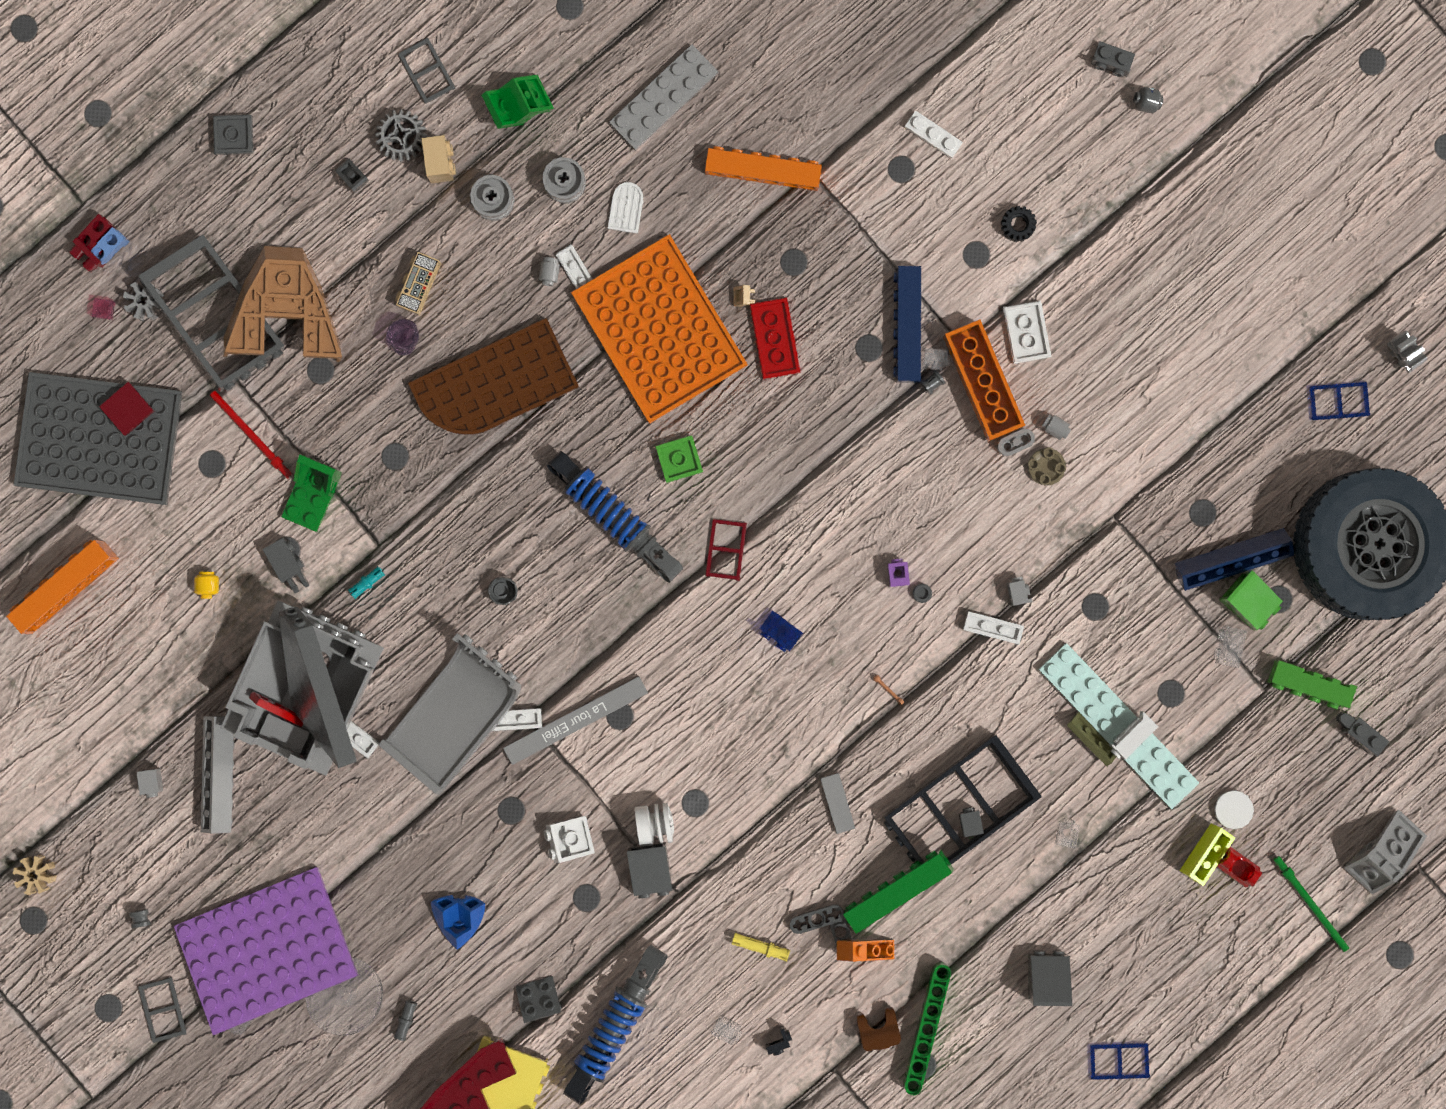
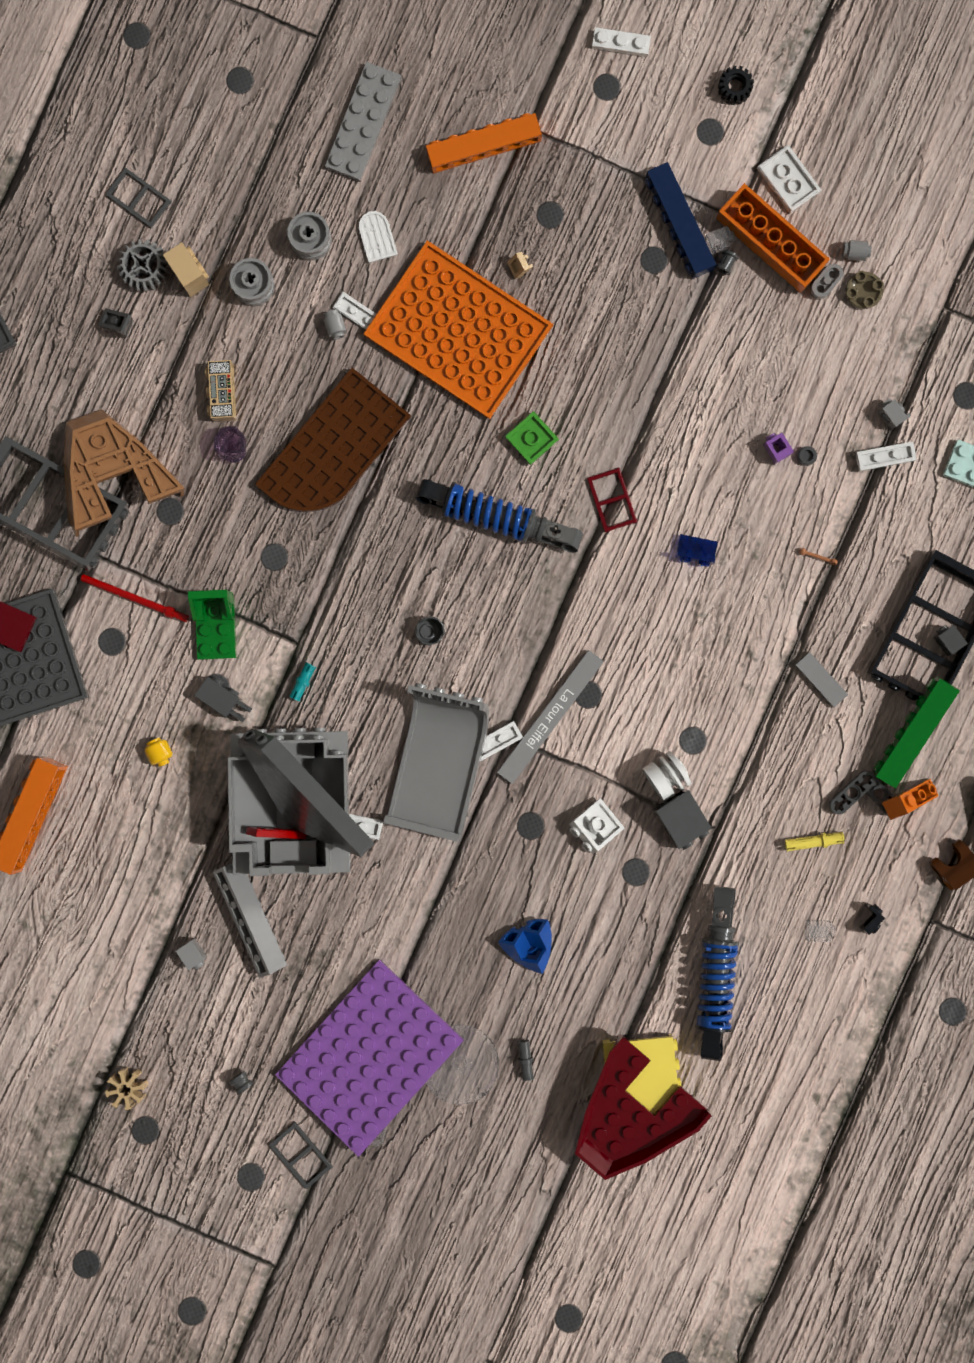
camera: 25 degrees left, 0 degrees up
(517, 101) = (233, 184): green bracket -> none
(538, 999) = (636, 984): dark grey hinge -> none
(775, 338) = (566, 290): red tile -> none

